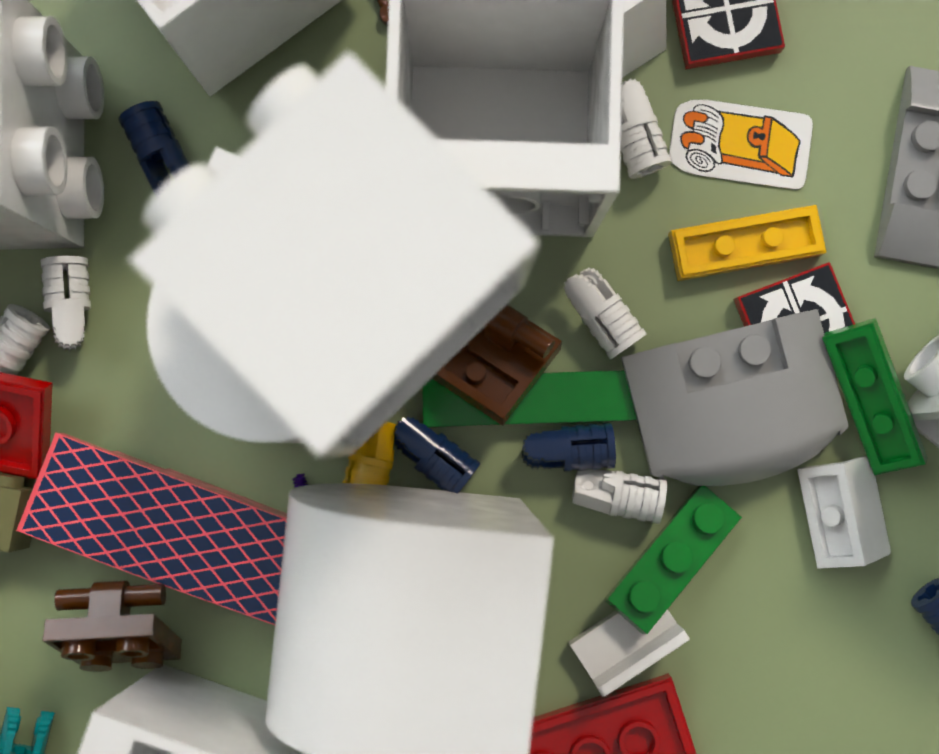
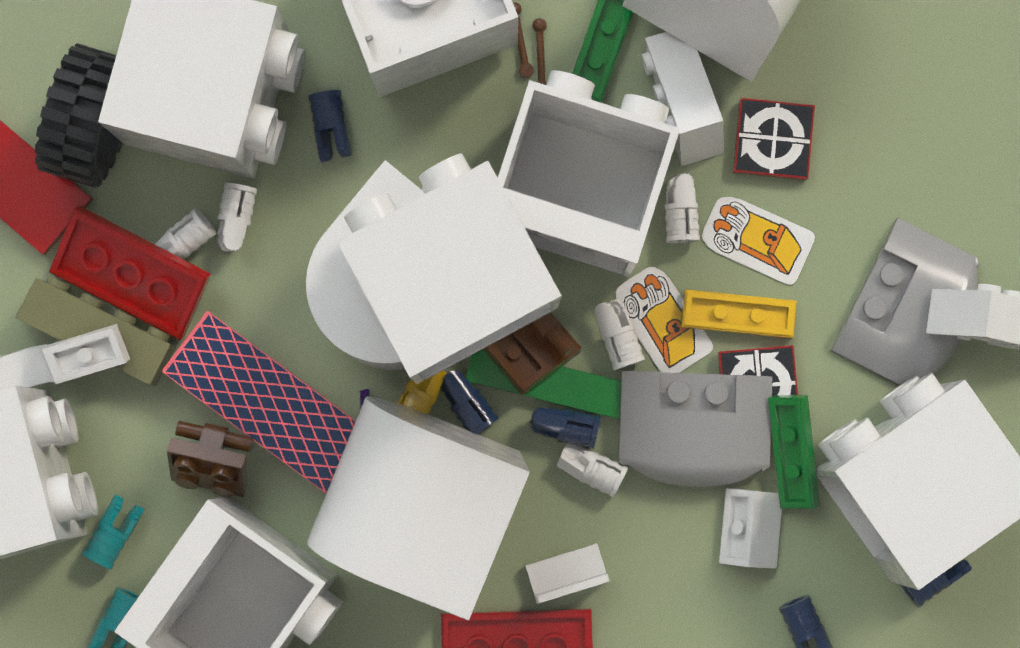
camera: 15 degrees right, 0 degrees up
(643, 273) = (656, 317): none -> sticker
(672, 559) = (616, 525): green plate -> none

